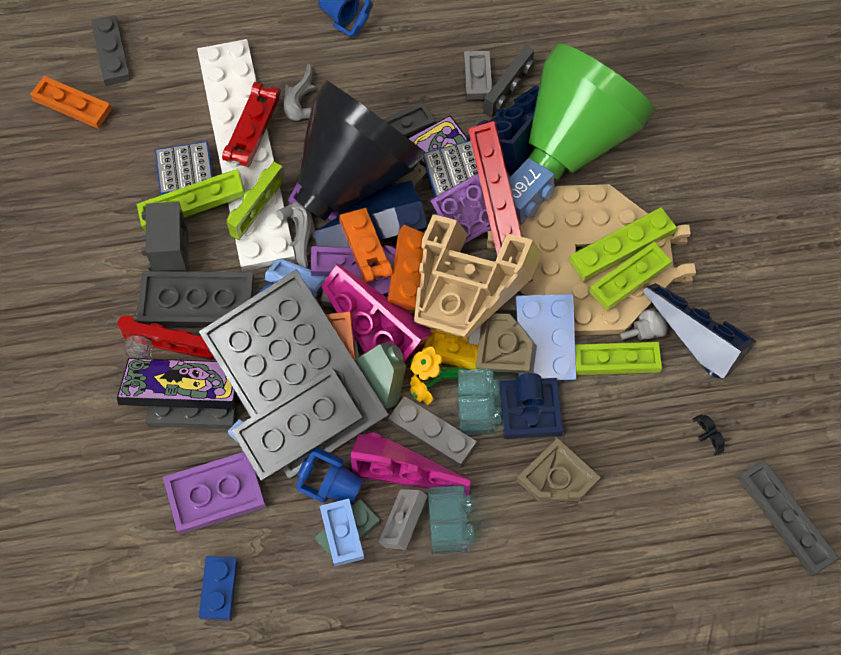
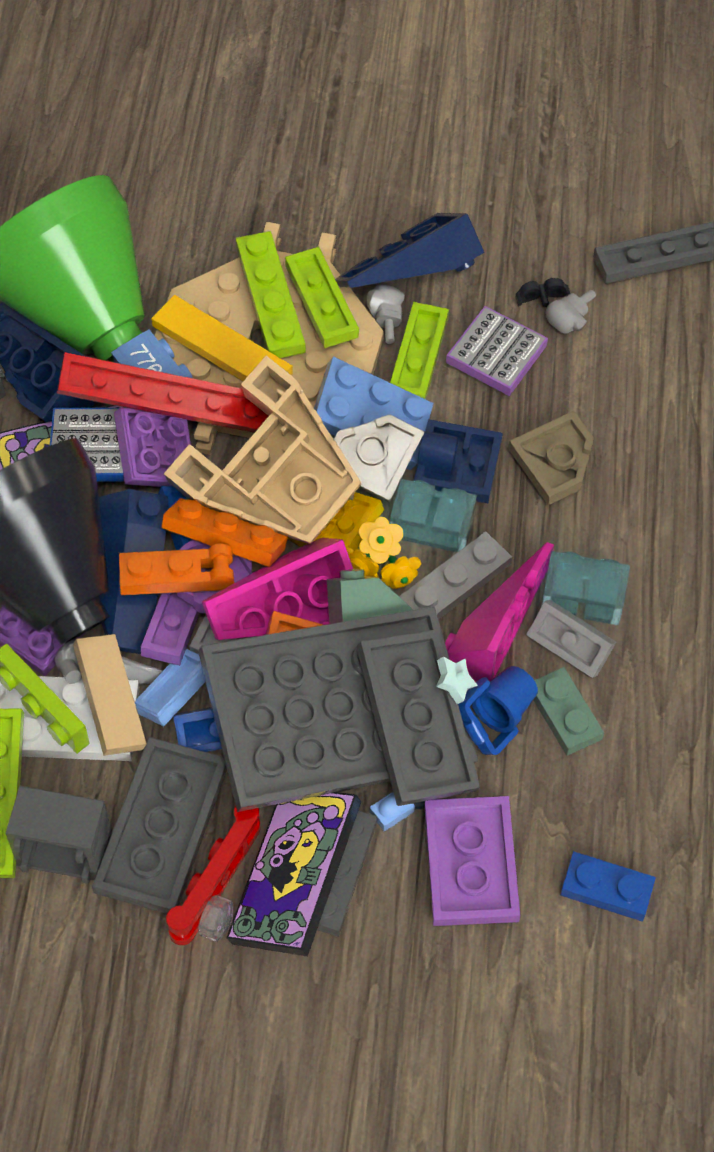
camera: 75 degrees left, 5 degrees down
(271, 238) = (109, 694): none -> tan tile
(329, 439) = (455, 678): none -> light aqua piece
(341, 532) = (579, 704): light blue plate -> none
(565, 226) = (212, 339): none -> yellow tile
(639, 412) = (496, 350): none -> tile
(695, 455) = (569, 312): none -> light grey piece

